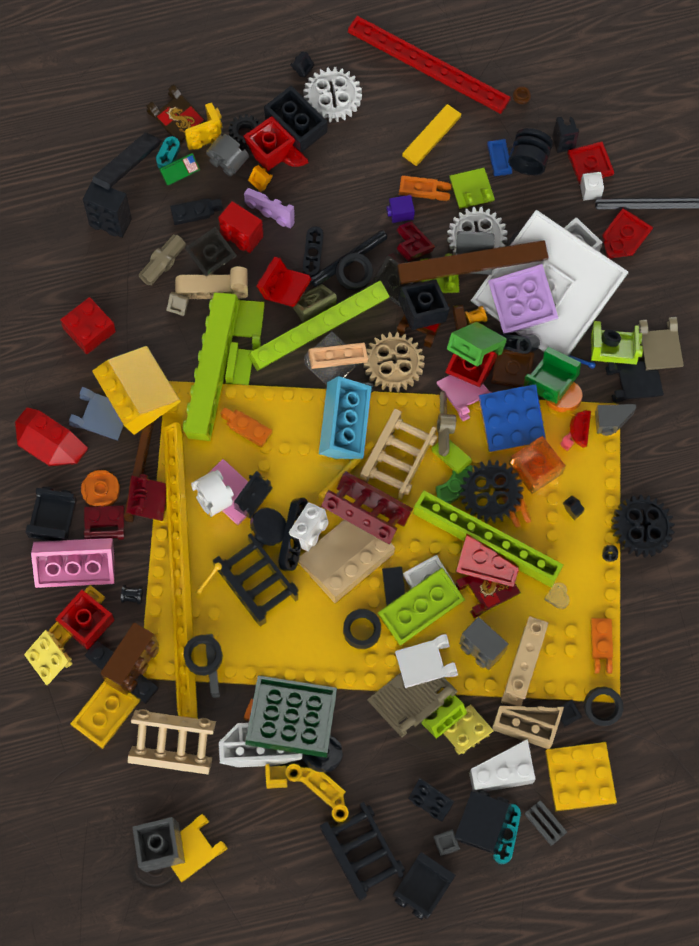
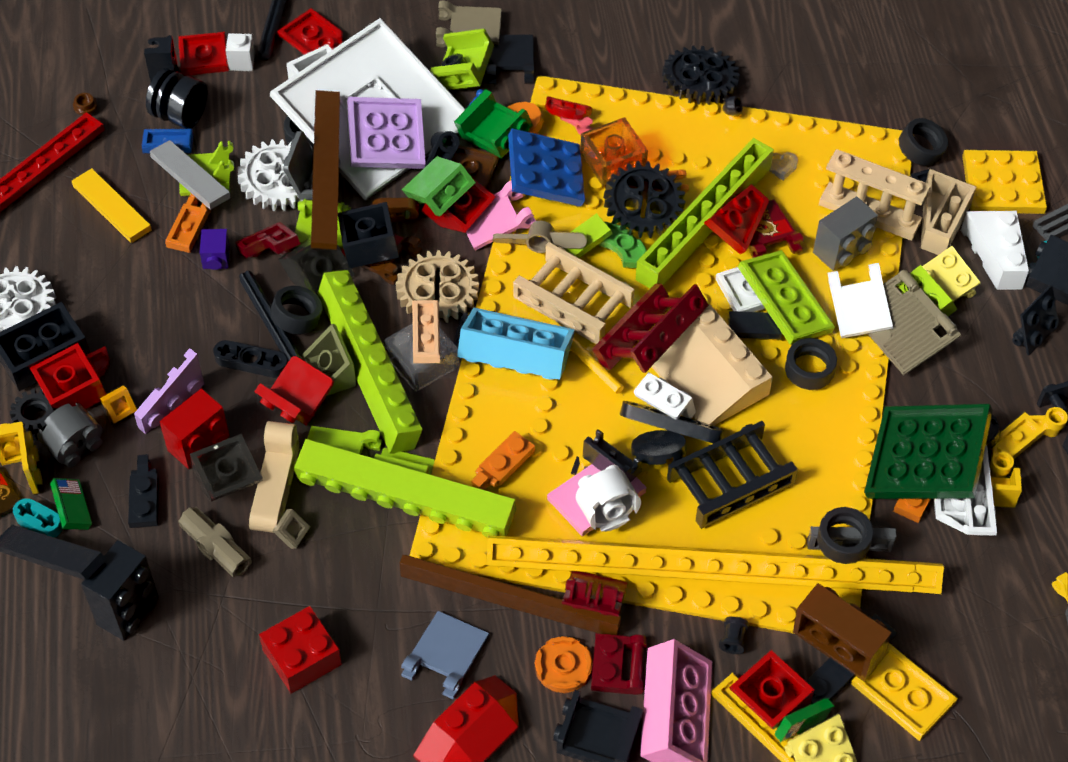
camera: 80 degrees left, 15 degrees down
(69, 642) = (803, 719): none -> green tile
(136, 388) = (422, 586): yellow slope -> none
(166, 759) = (980, 600): tan fence -> none
(218, 566) = (737, 545): yellow hinge -> none
(463, 177) = (190, 174): none -> light grey tile
(476, 315) = (394, 184): light orange bush -> none
(573, 507) = (671, 130): black piece -> none
(602, 643) = (848, 132): orange hinge -> none
(612, 417) = (561, 76): dark grey slope -> none

